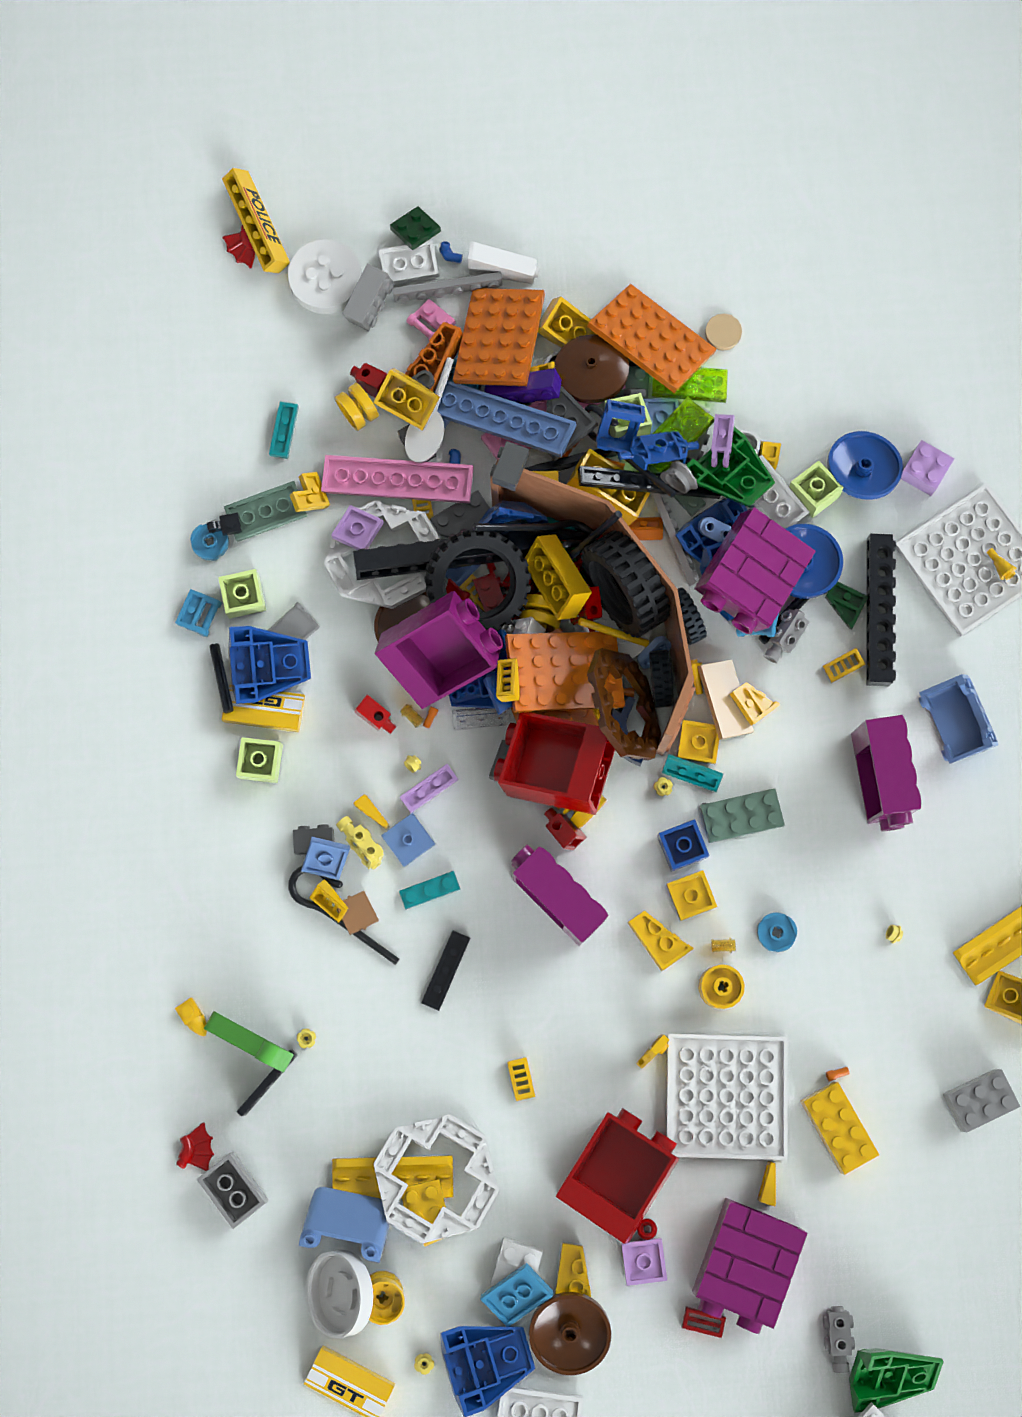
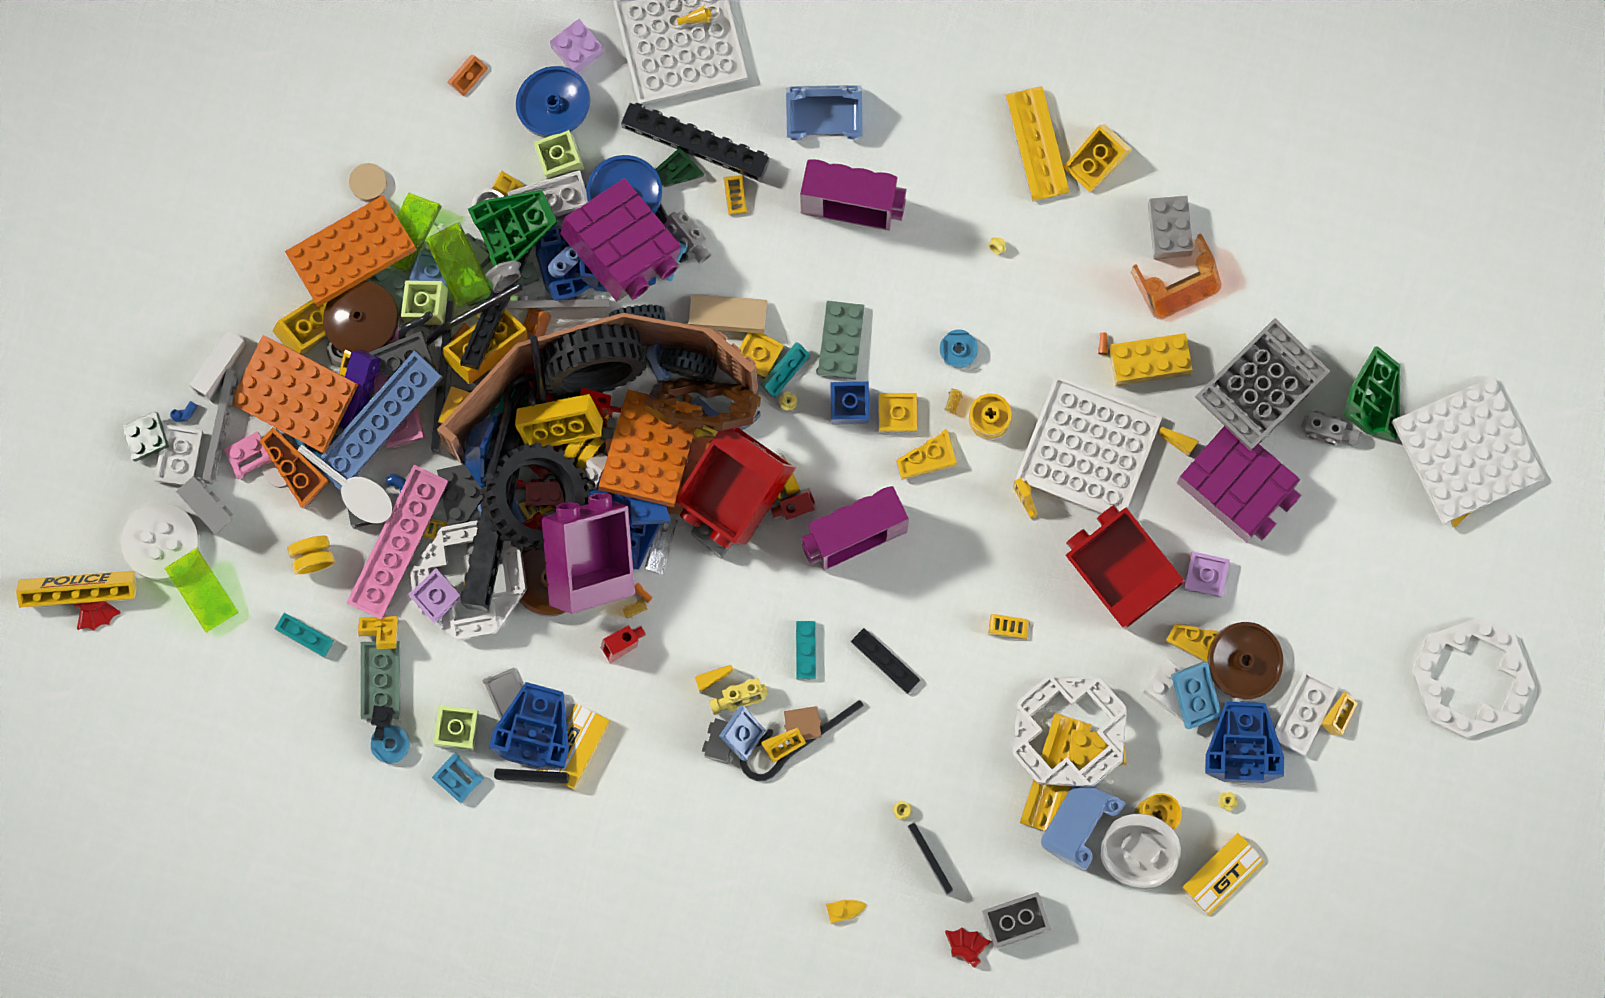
camera: 70 degrees left, 0 degrees up
(249, 1042) = (907, 839): bright green beam -> none
(259, 760) = (625, 765): yellowish green brick -> none
(292, 325) = (201, 590): none -> clear neon green plate
(369, 378) = (295, 529): red torso -> none
(406, 398) = (325, 502): yellow slope -> none
(408, 840) = (751, 653): medium blue plate -> none
(412, 763) = (681, 624): light yellow plate -> none
(425, 378) = (312, 480): dark grey tile -> none
(429, 788) = (710, 617): lavender plate -> none
(509, 692) = (659, 500): yellow slope -> none
(510, 465) = (450, 419): dark grey piece -> none
(613, 632) = (626, 394): yellow bar -> none
(619, 410) = (429, 295): blue panel -> none
(630, 391) = (398, 288): dark grey tile -> none
(645, 449) = (470, 296): blue plate -> none
(647, 1236) = (1179, 555): red plate -> none
(686, 1318) = (1267, 555): red tile -> none
(722, 438) = (479, 221): lavender hinge -> none
(752, 703) = (740, 290): yellow wing -> none
(856, 1255) = (1262, 384): none -> light grey wedge
(859, 382) = (467, 75): none -> orange slope
(904, 1123) = (1178, 296): none -> clear orange windscreen

